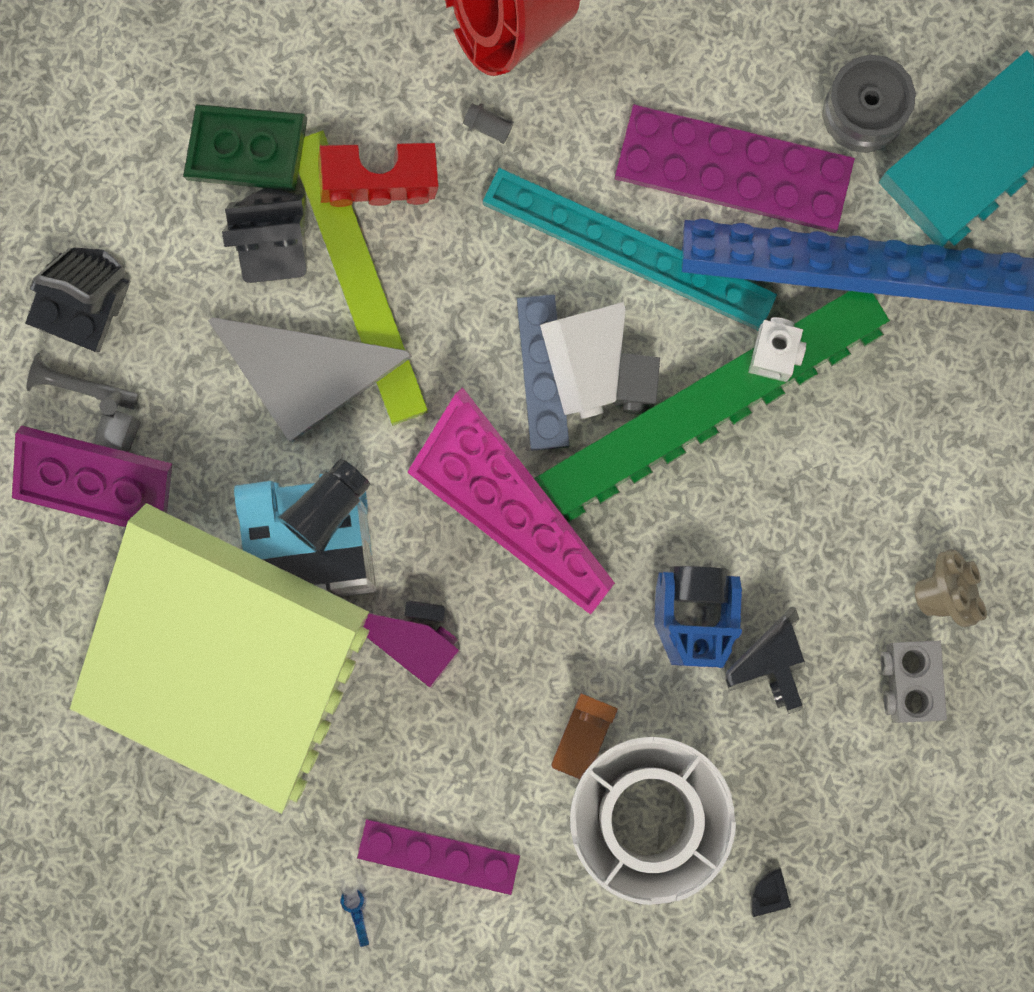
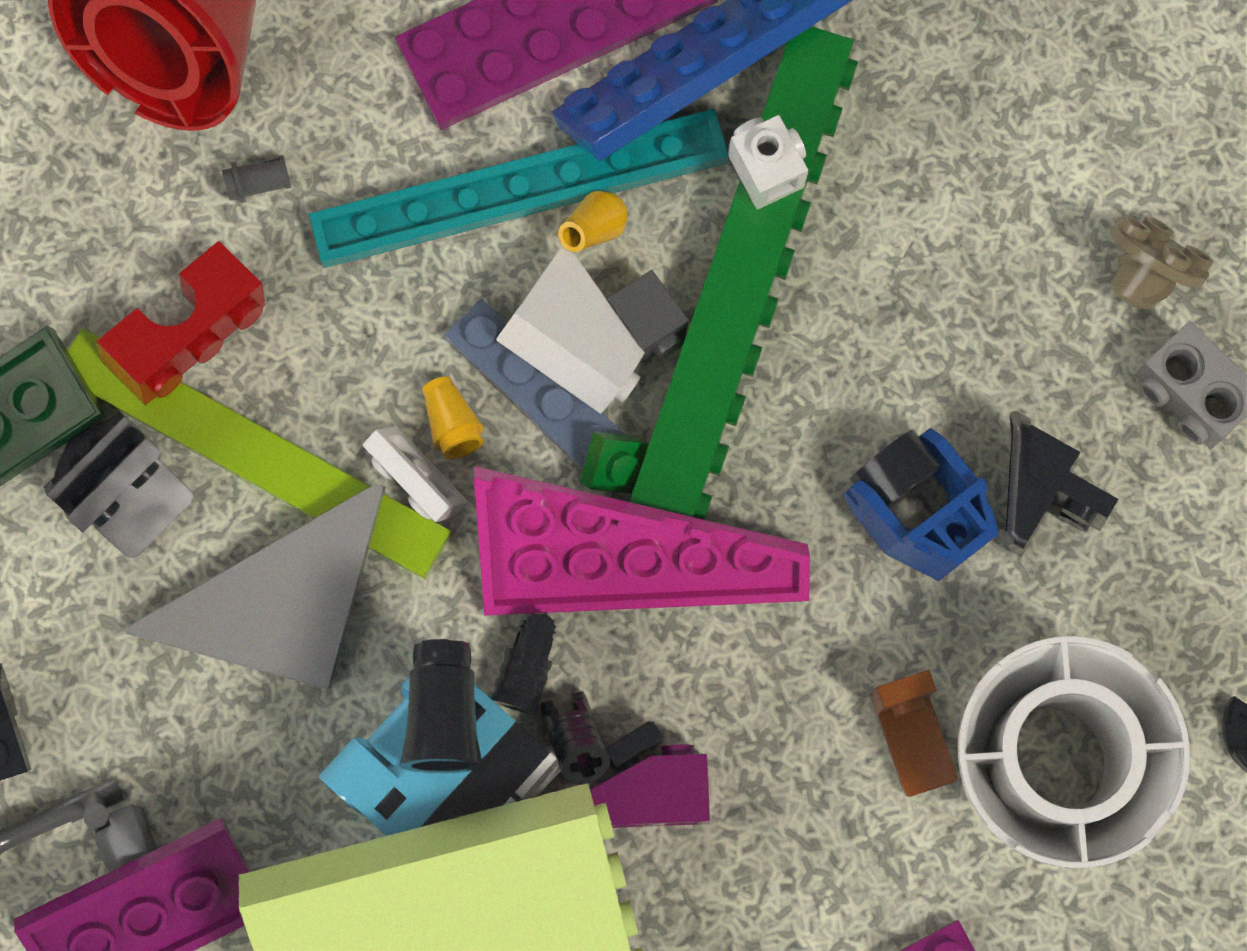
camera: 45 degrees left, 5 degrees down
(396, 583) = (576, 741): none -> black hinge
(404, 519) = (526, 666): none -> black hinge
(434, 362) = (403, 462): none -> white plate
(480, 349) = (451, 420): none -> yellow cone
(547, 447) = (613, 462): none -> green plate
(652, 303) = (594, 221): none -> yellow cone

